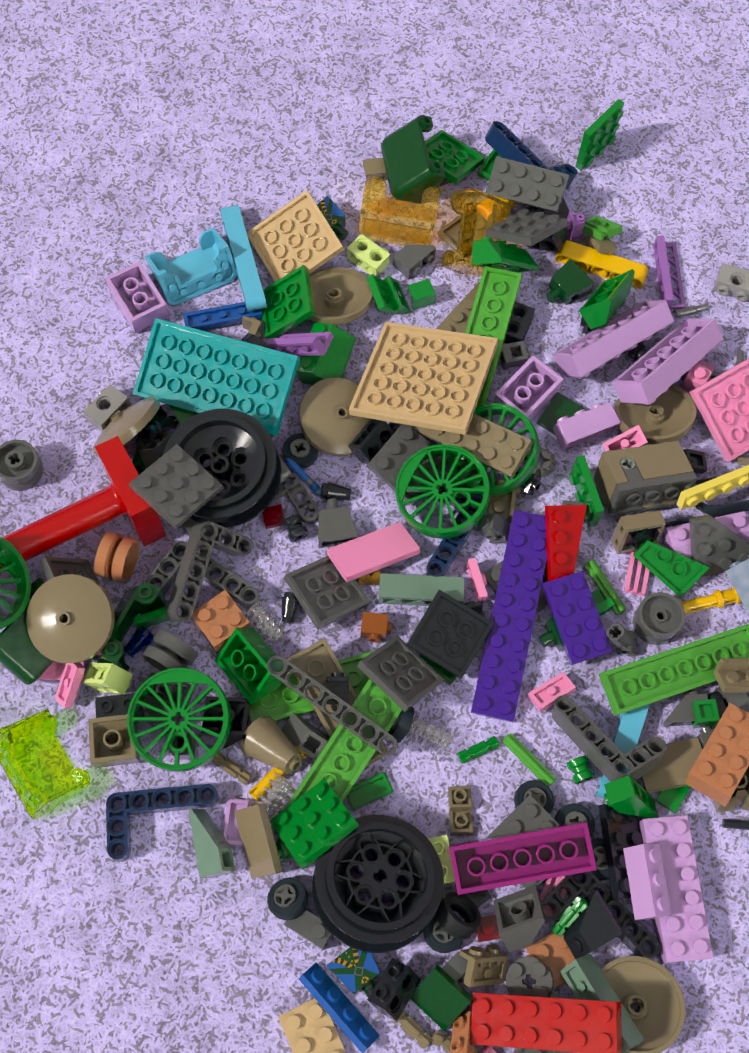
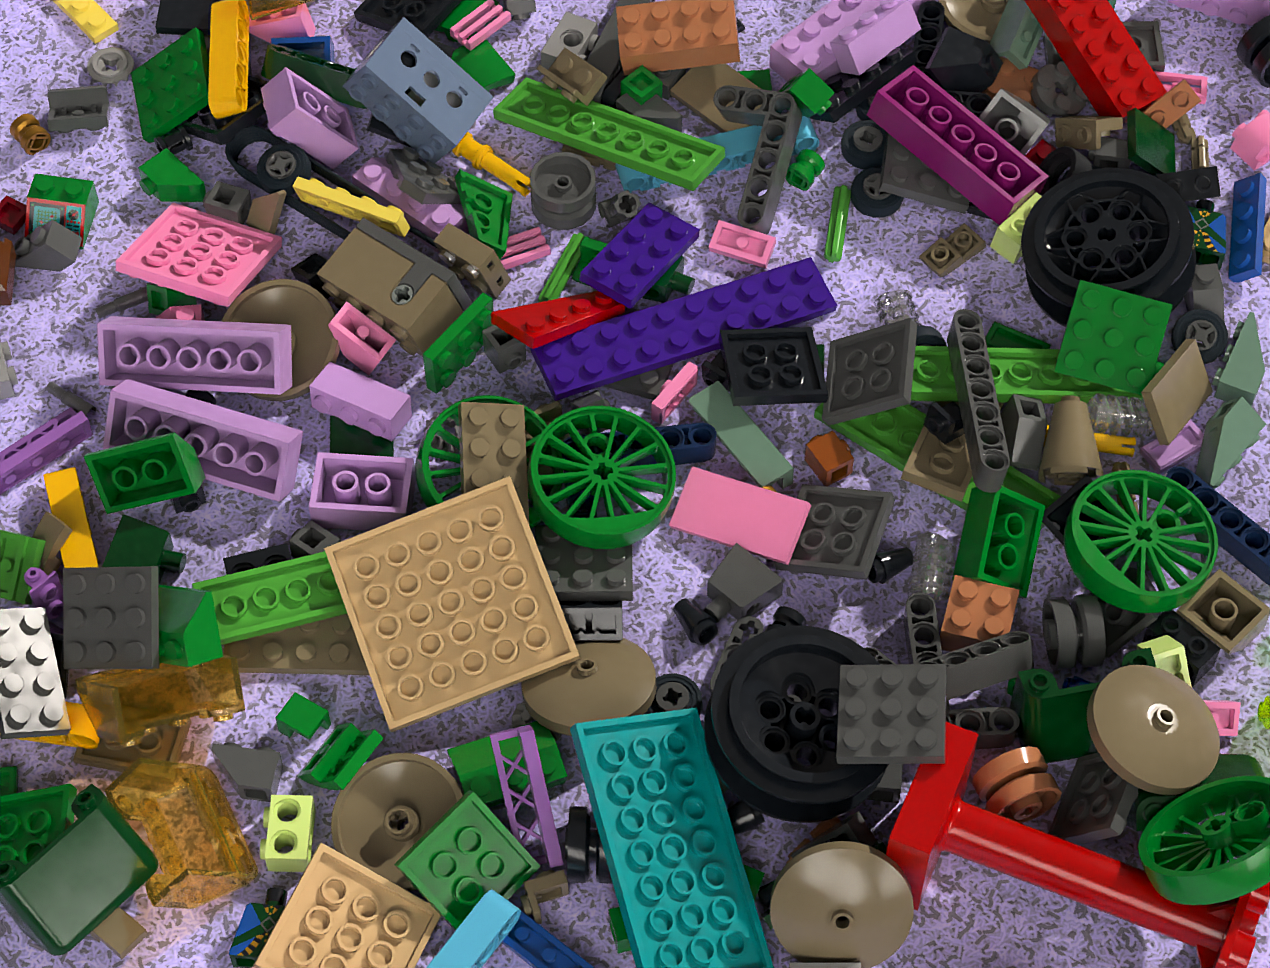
camera: 125 degrees left, 10 degrees down
(245, 903) = (1244, 364): none -> sand green slope
(303, 475) = (705, 670): blue piece -> none
(478, 749) = (871, 275): green axle -> none
(569, 916) = (968, 82): green axle -> none

